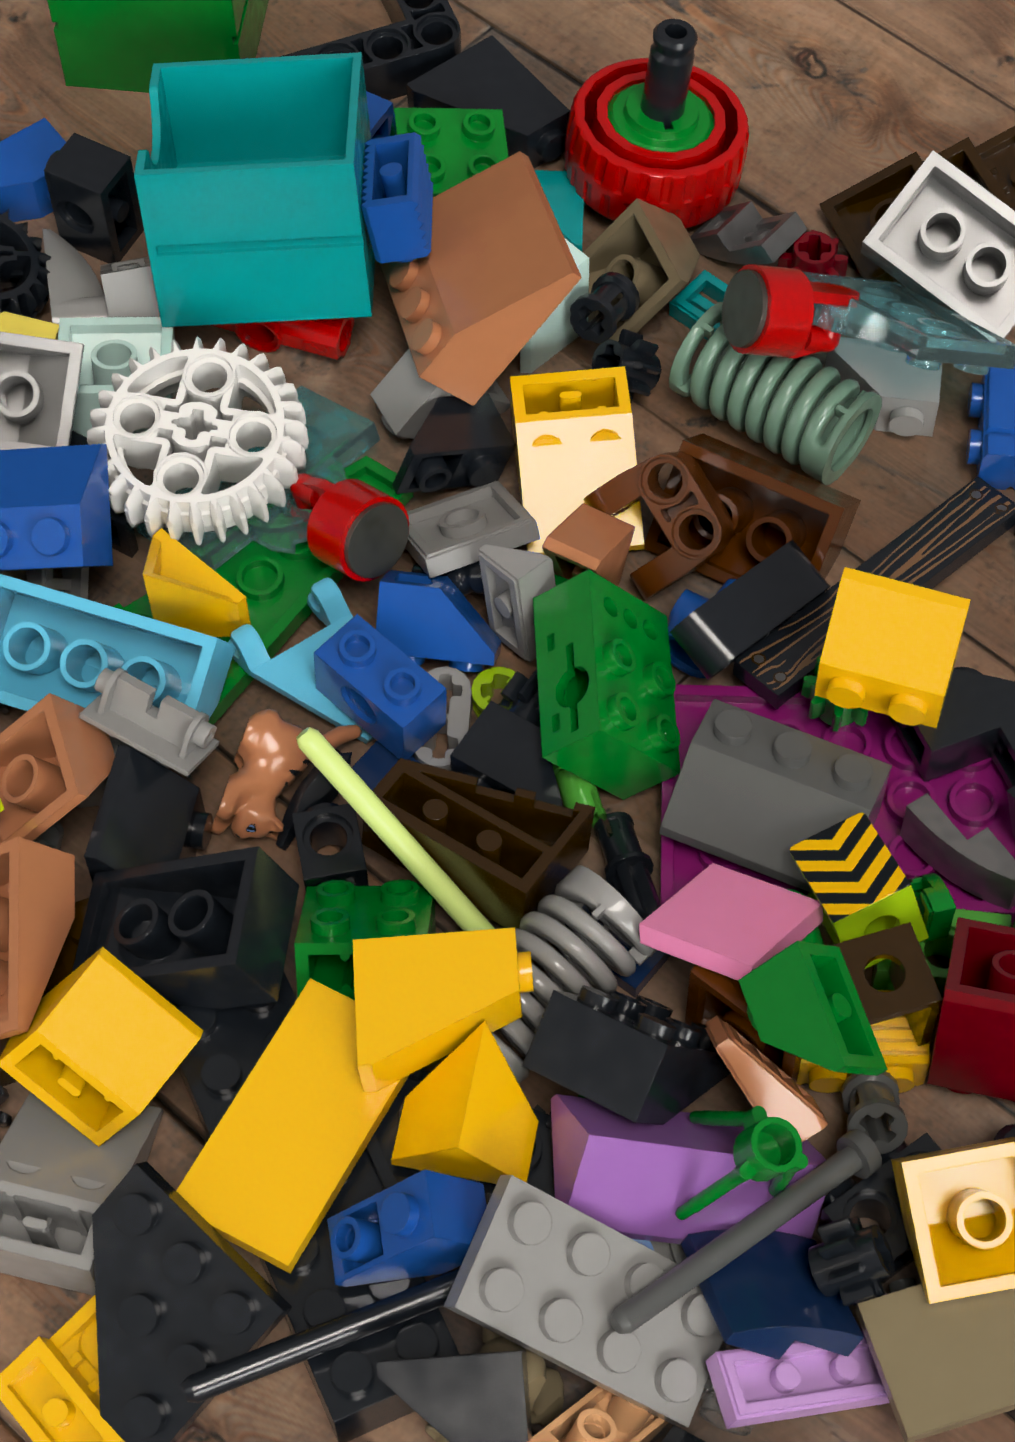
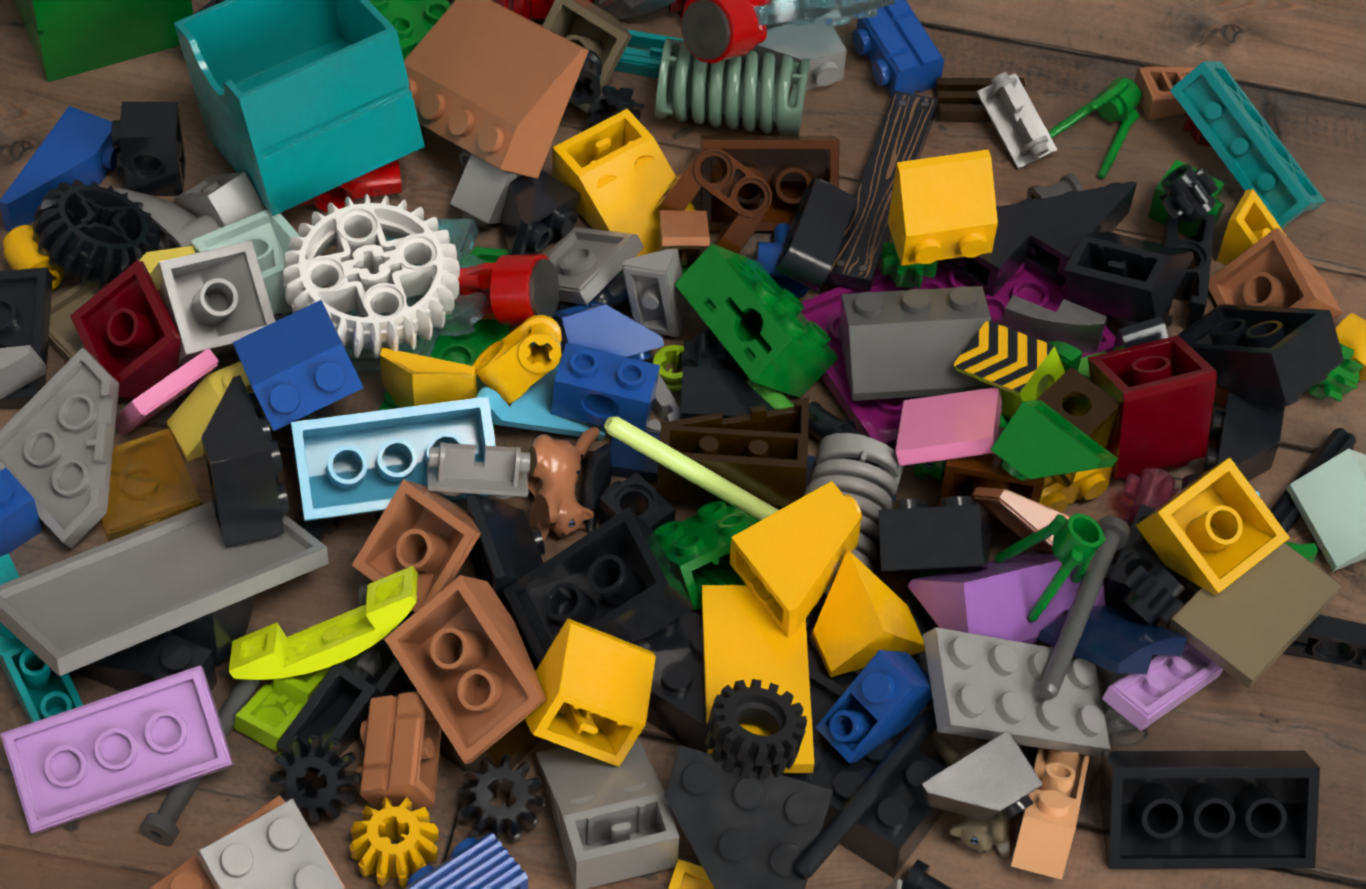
camera: 35 degrees left, 5 degrees down
(238, 1154) = (751, 750): none -> black tyre
(308, 607) = (514, 363): none -> yellow piece
(397, 198) = (421, 51): blue brick -> none
(875, 1109) = (1096, 495): dark grey bush -> none
(954, 1120) = (1151, 488): none -> clear pink gear

